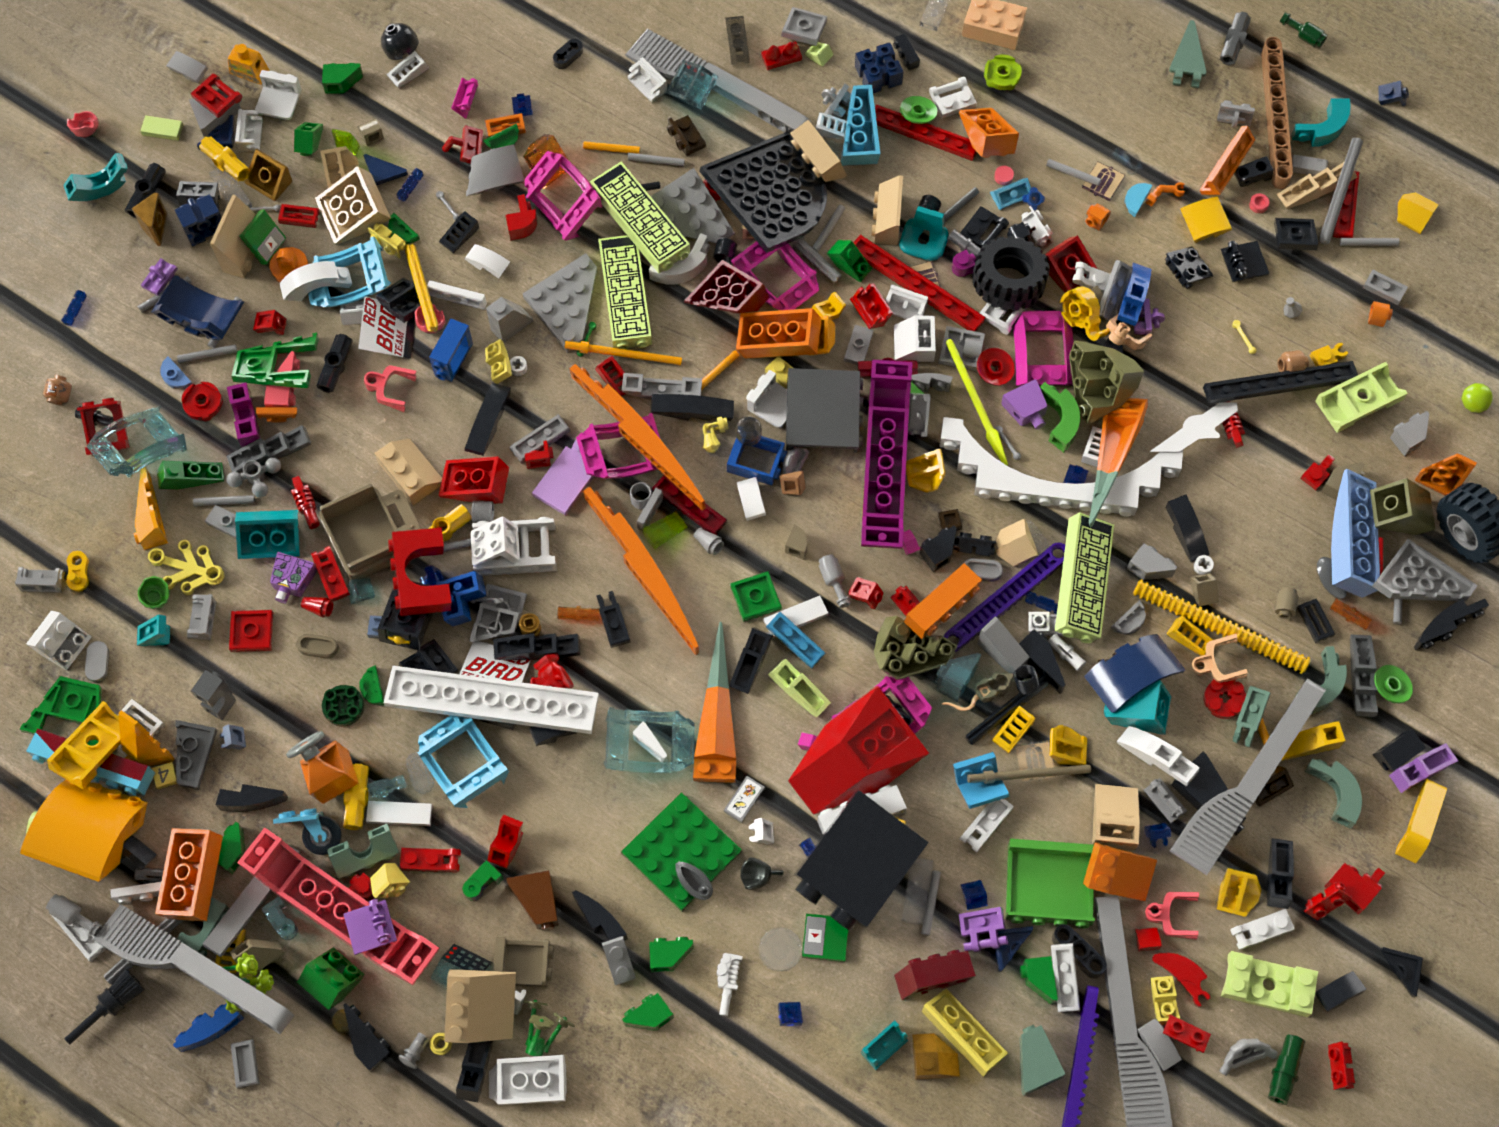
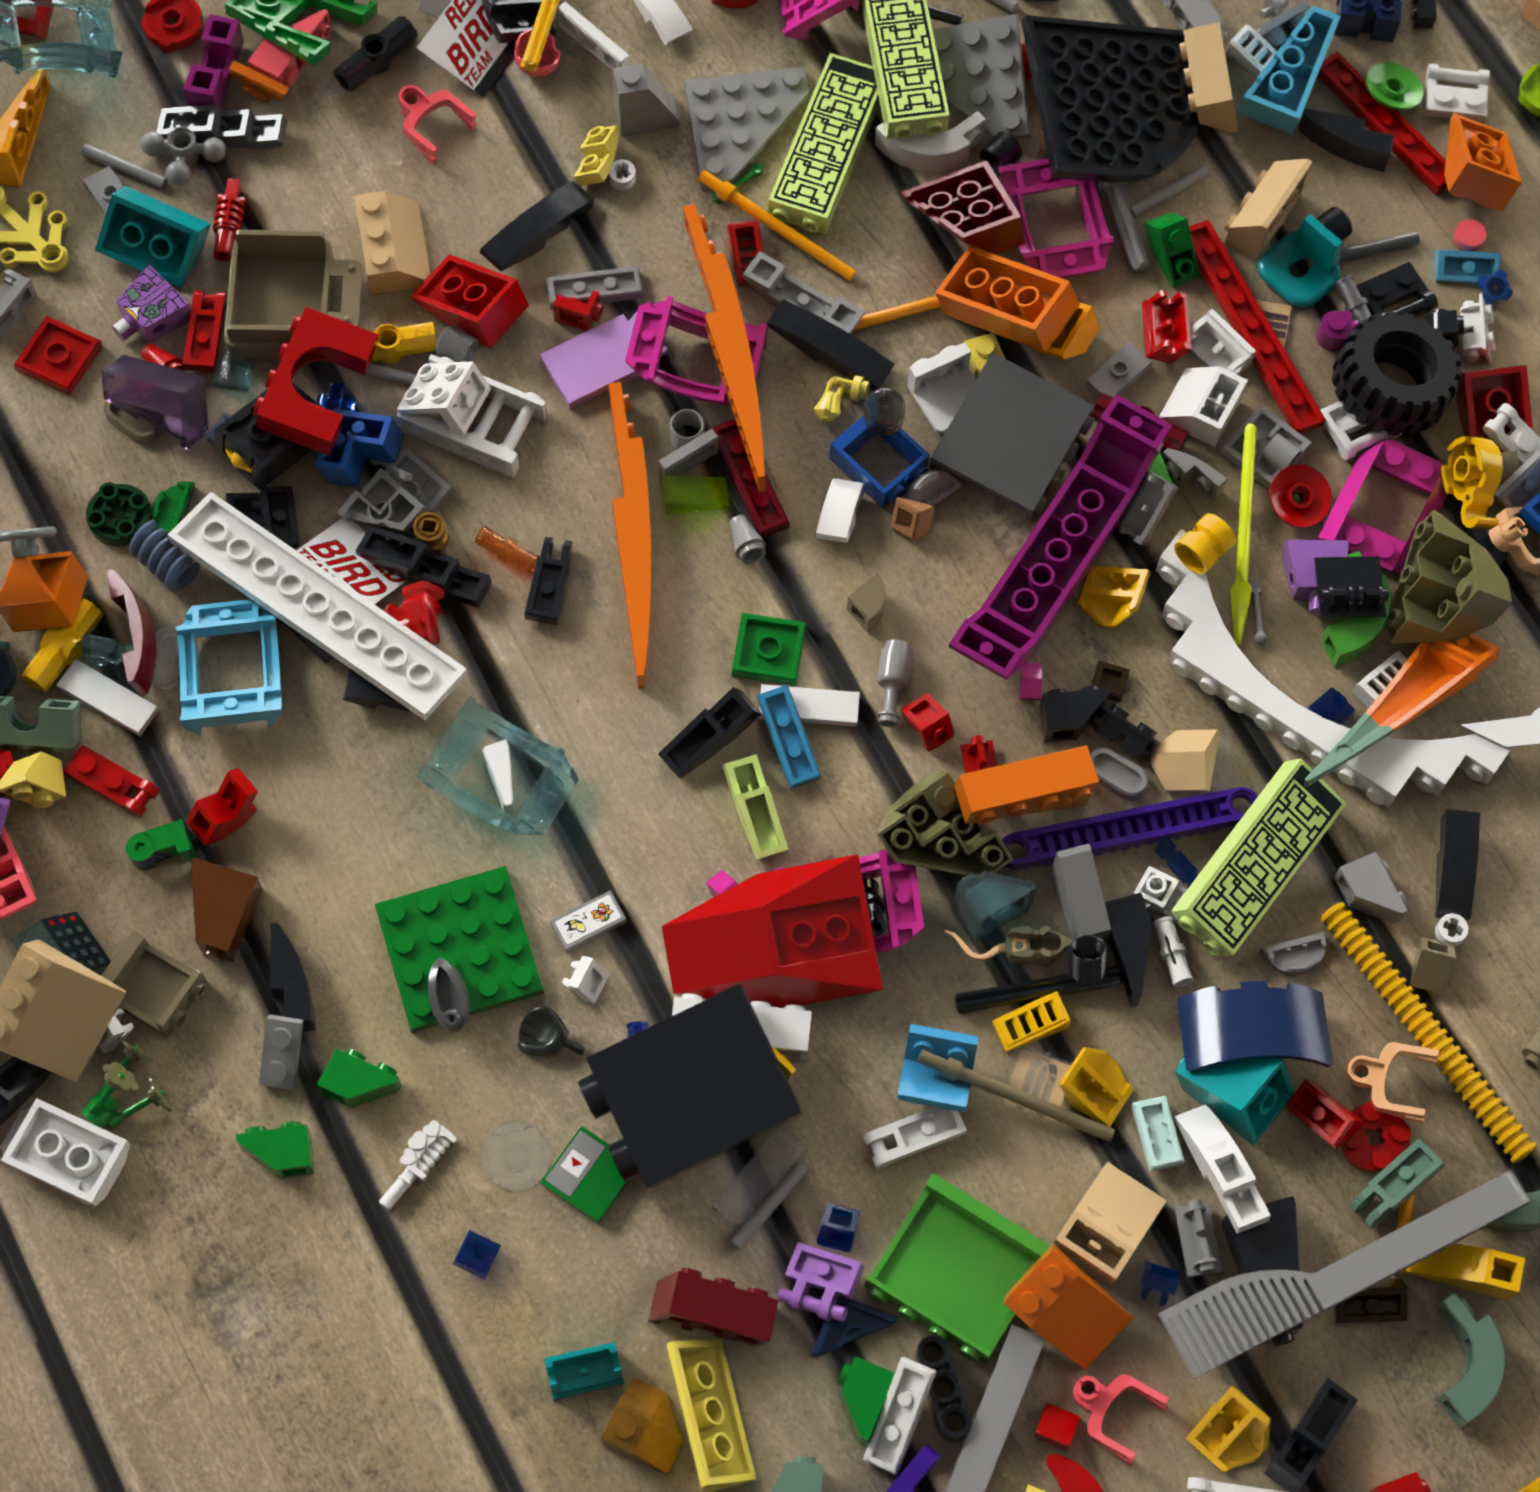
camera: 25 degrees right, 0 degrees up
(188, 474) = (97, 108): green slope -> none
(329, 625) = (160, 395): none -> clear purple wedge
(384, 717) = (162, 557): none -> sand blue piece
(409, 783) = (141, 661): none -> slope
(451, 350) = (539, 108): blue window -> none
(715, 742) = (592, 824): orange plate -> none
(832, 307) = (1106, 302): yellow bracket -> none
(910, 152) = (1347, 138): none -> black slope
(963, 419) = (1205, 543): none -> yellow wheel
(1052, 404) = (1350, 587): none -> black hinge
(1113, 754) = (1157, 1133): none -> light aqua plate
(1186, 641) = (1362, 1028): yellow slope -> none
(1193, 698) = (1323, 1113): none -> red slope

